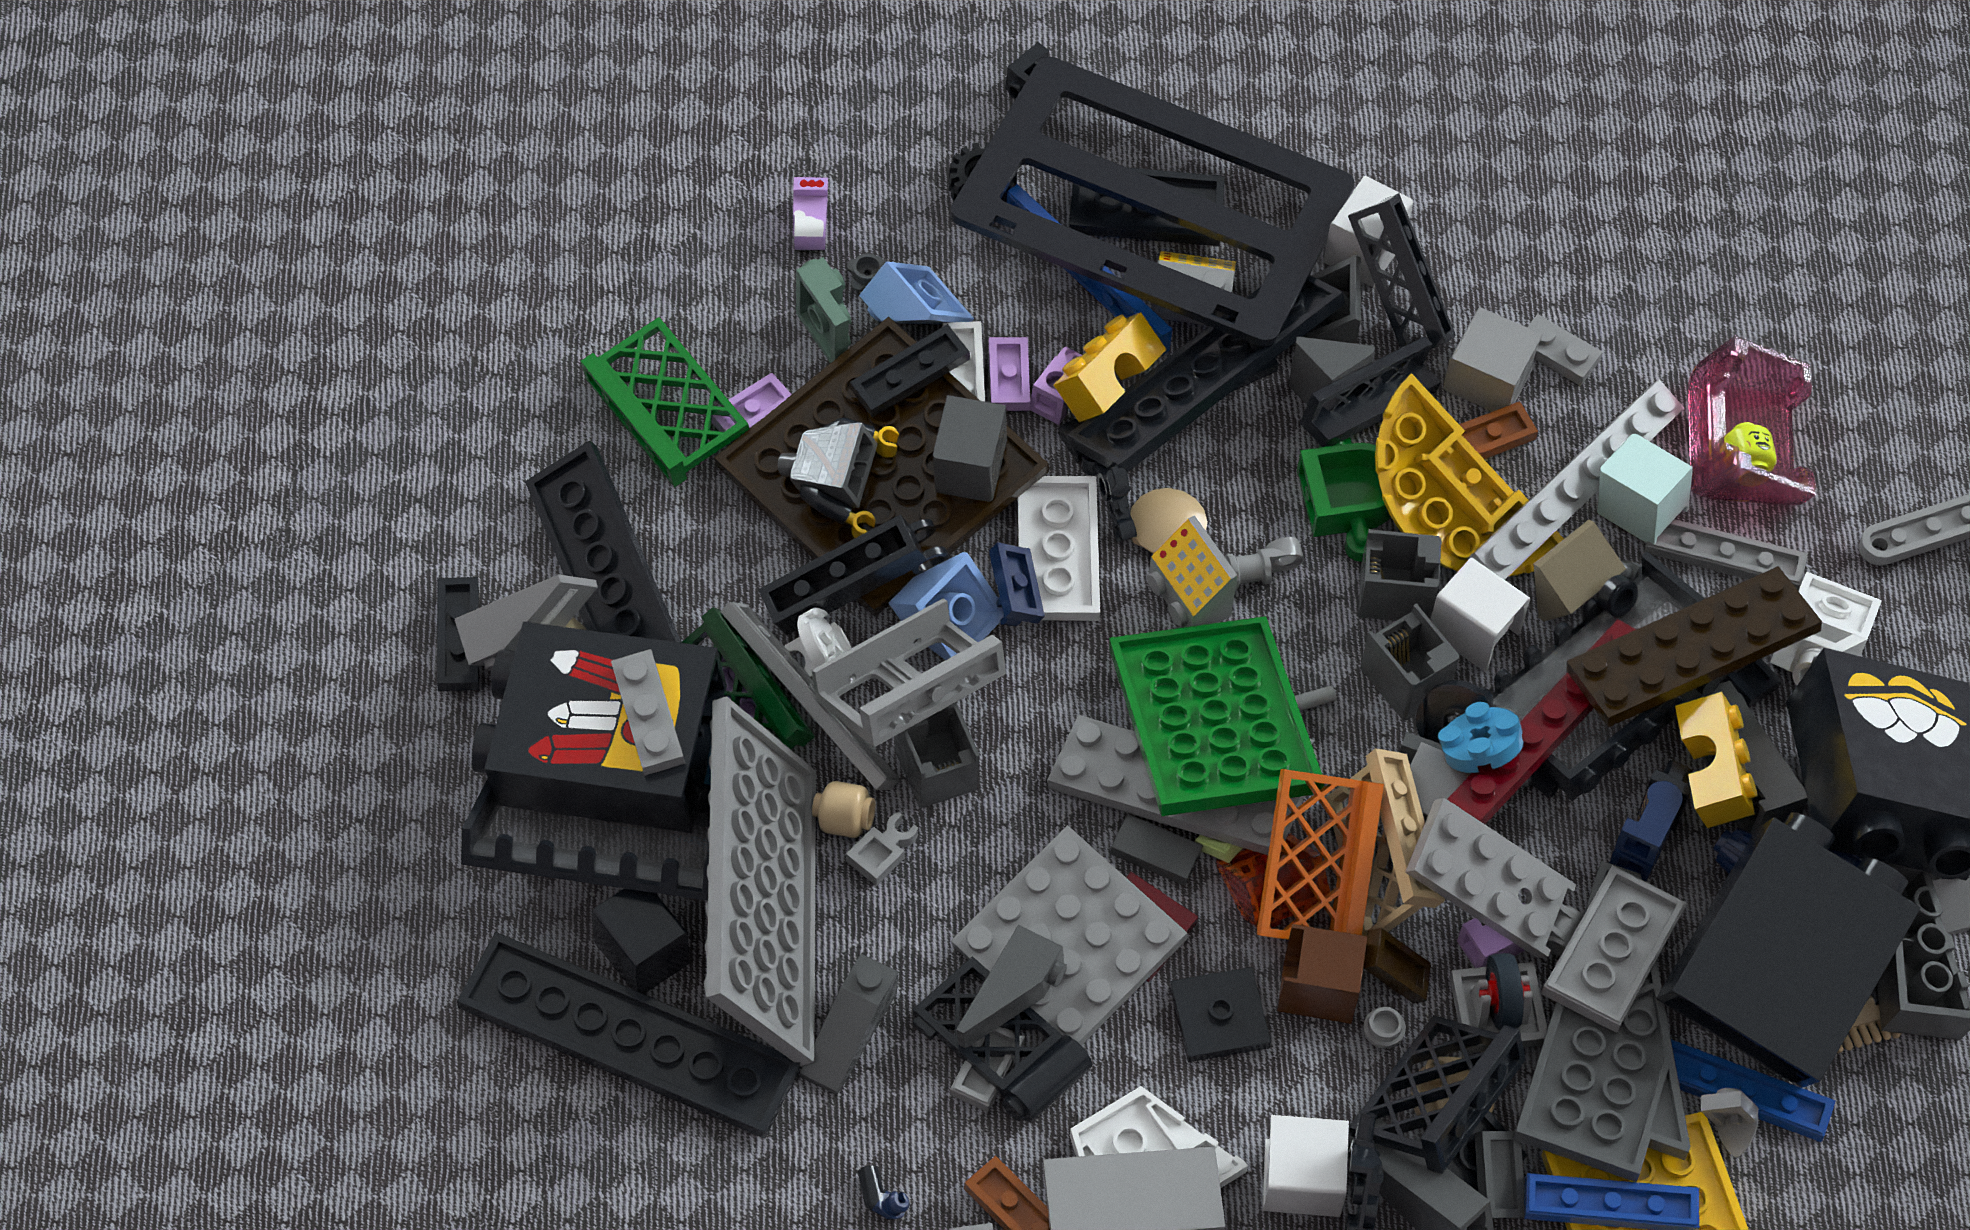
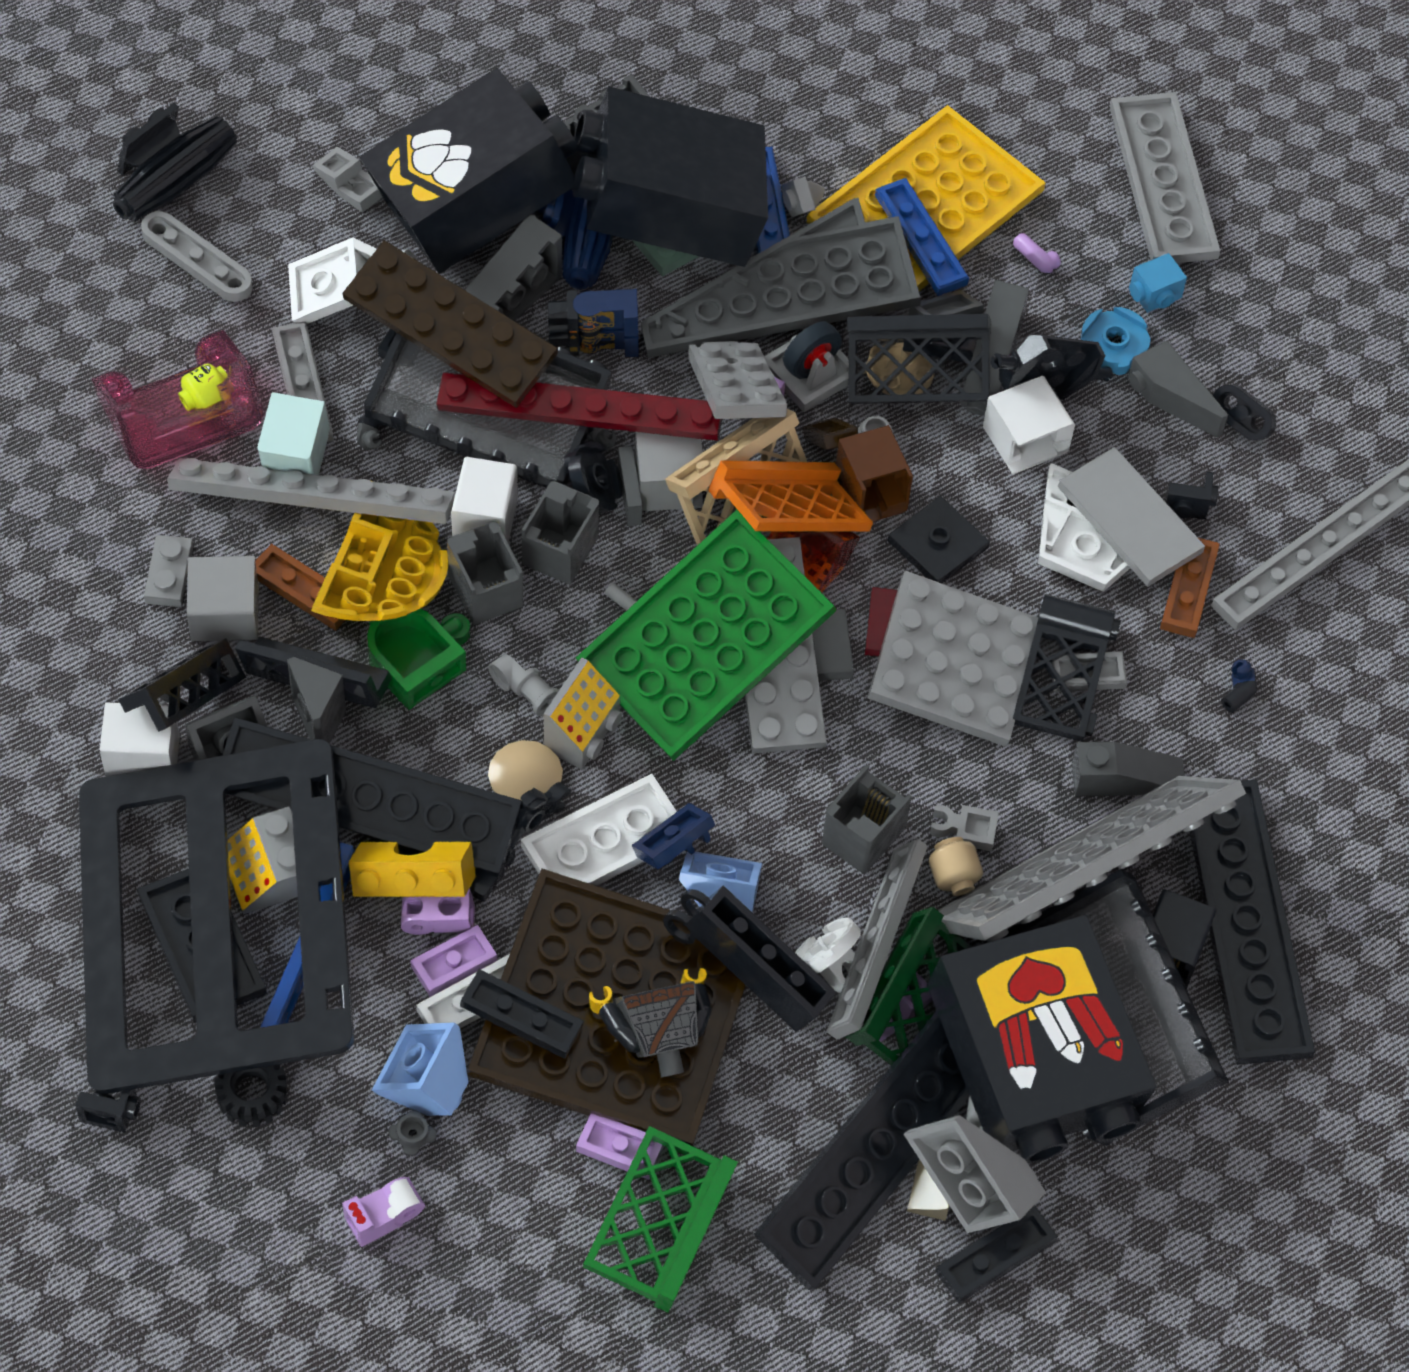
camera: 120 degrees left, 0 degrees up
(647, 712) = (1033, 976): light grey plate -> none
(822, 308) = (489, 1127): sand green plate -> none
(912, 694) = (841, 827): light grey window -> none
(969, 448) = (583, 913): dark grey piece -> none
(1014, 984) = (1029, 660): dark grey slope -> none
(1481, 738) = (604, 441): dark azure plate -> none
(1574, 571) = (410, 450): dark tan slope -> none
(1614, 948) = (722, 305): light grey tile -> none
(1618, 596) = (415, 410): black tile -> none
(1723, 788) = (560, 265): yellow arch -> none

